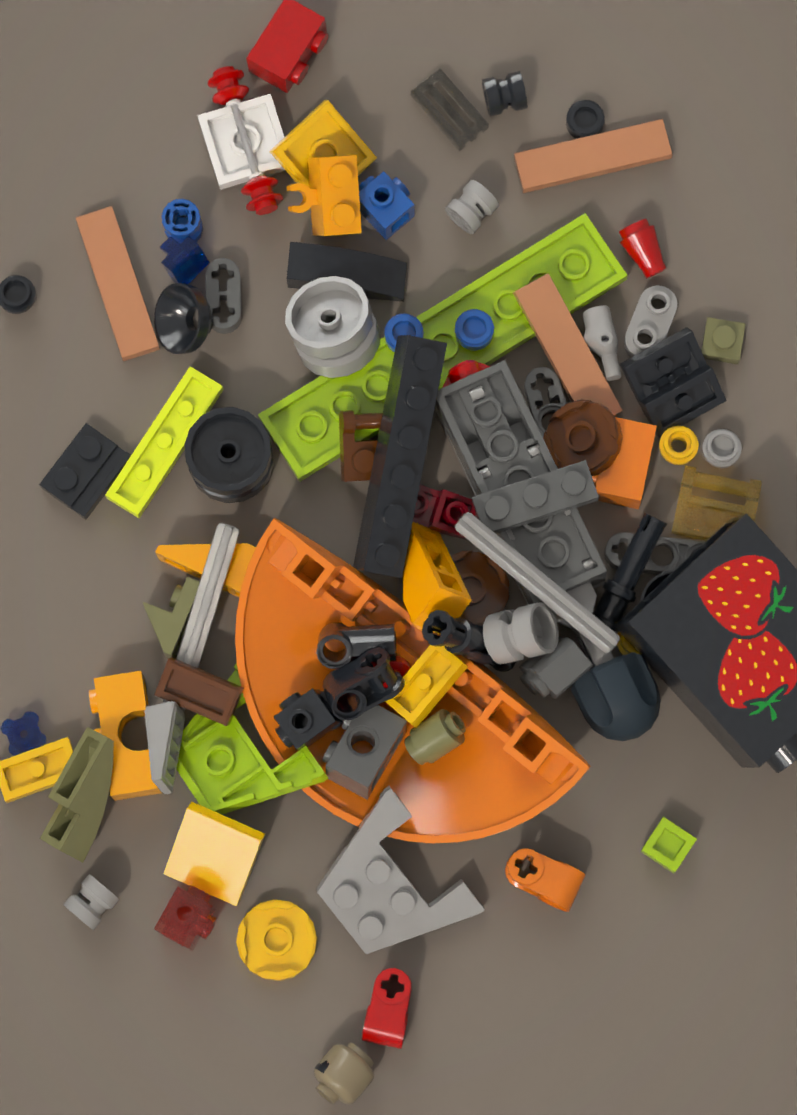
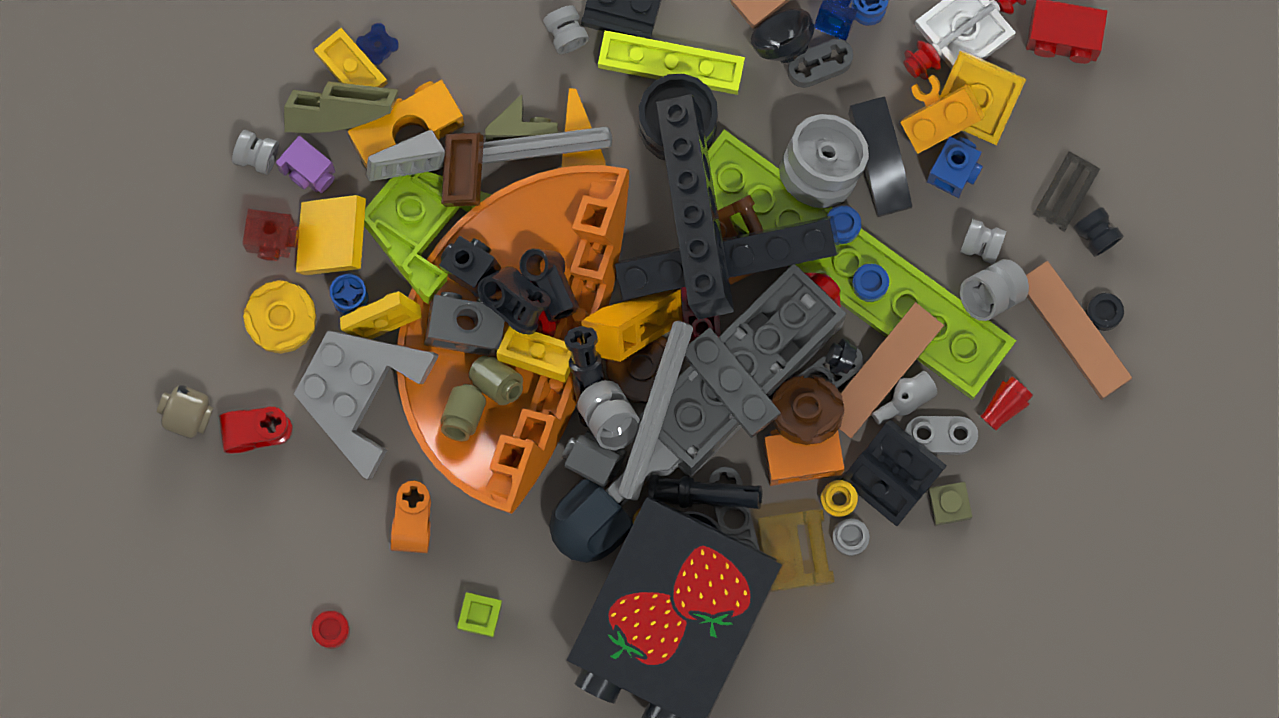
camera: 65 degrees right, 0 degrees up
(96, 534) = (566, 29): none -> light grey wheel
(129, 852) = (306, 166): none -> medium lavender brick
(280, 853) = (345, 289): none -> blue wheel
(323, 831) = (381, 316): none -> yellow plate
(343, 463) = (695, 207): none -> black brick
(458, 782) = (462, 412): none -> olive brick
(528, 213) = (994, 290): none -> light grey wheel
(541, 385) = (841, 356): none -> black plate
(627, 1004) = (330, 629): none -> red tile

